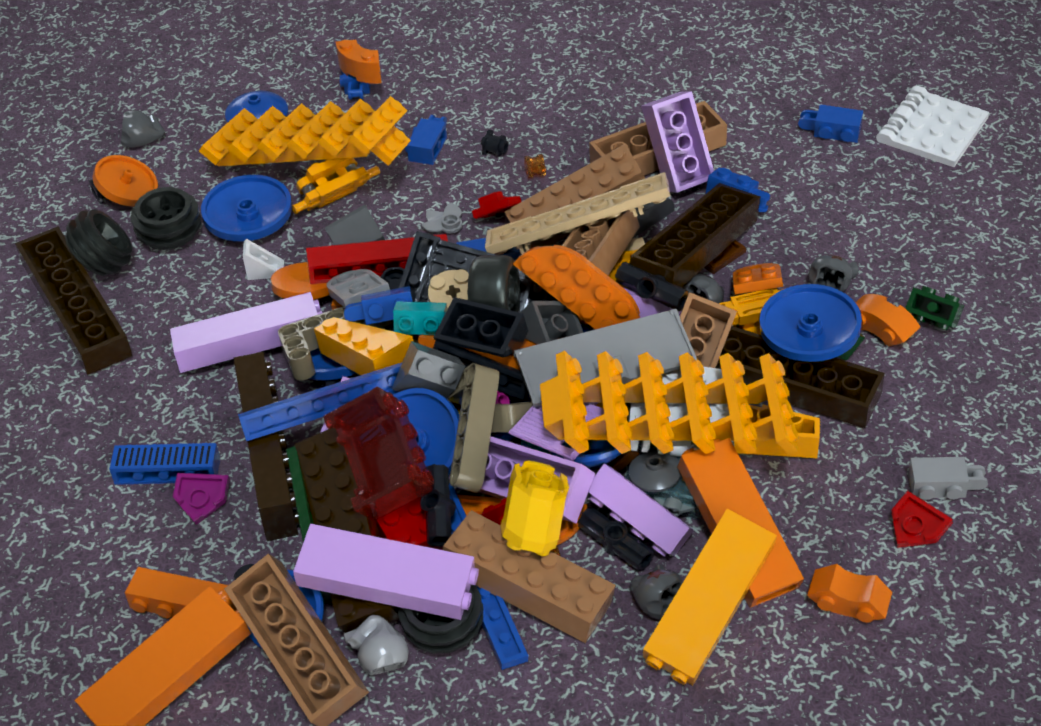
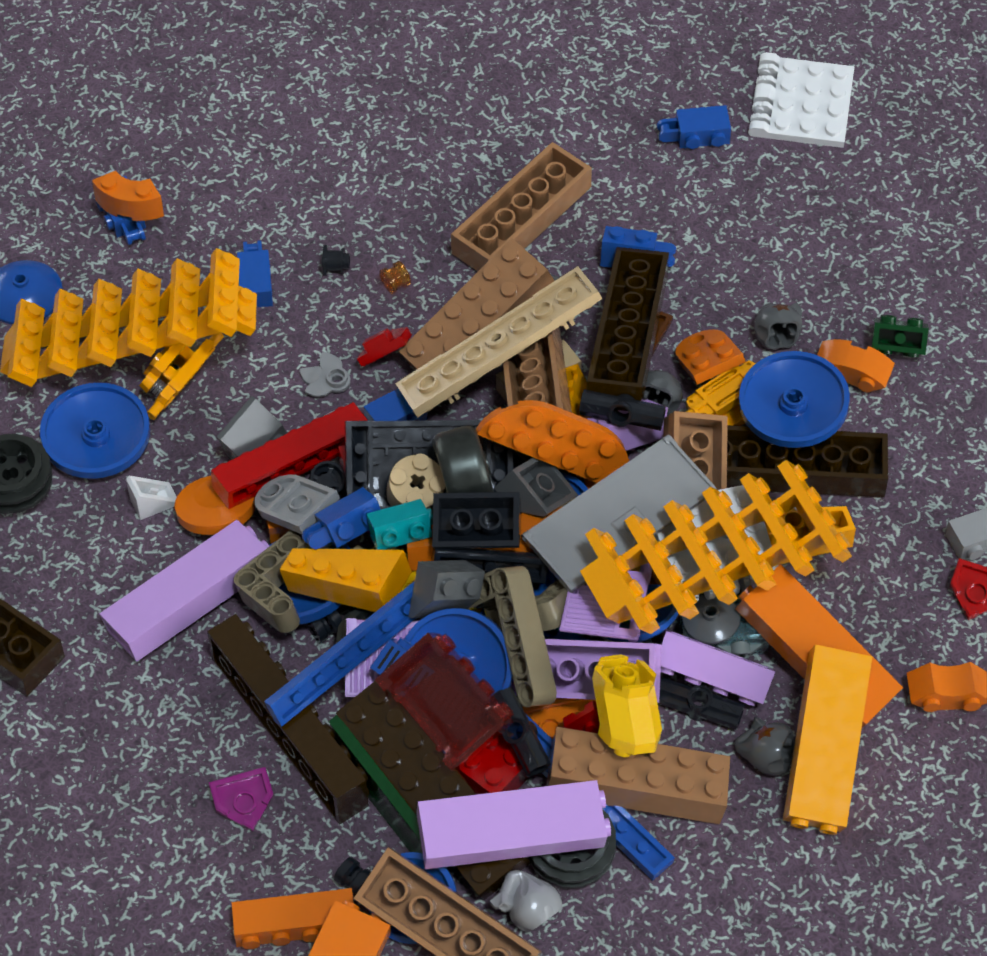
camera: 25 degrees left, 10 degrees up
(162, 462) = (182, 774): blue brick -> none
(678, 140) = (555, 209): lavender brick -> none

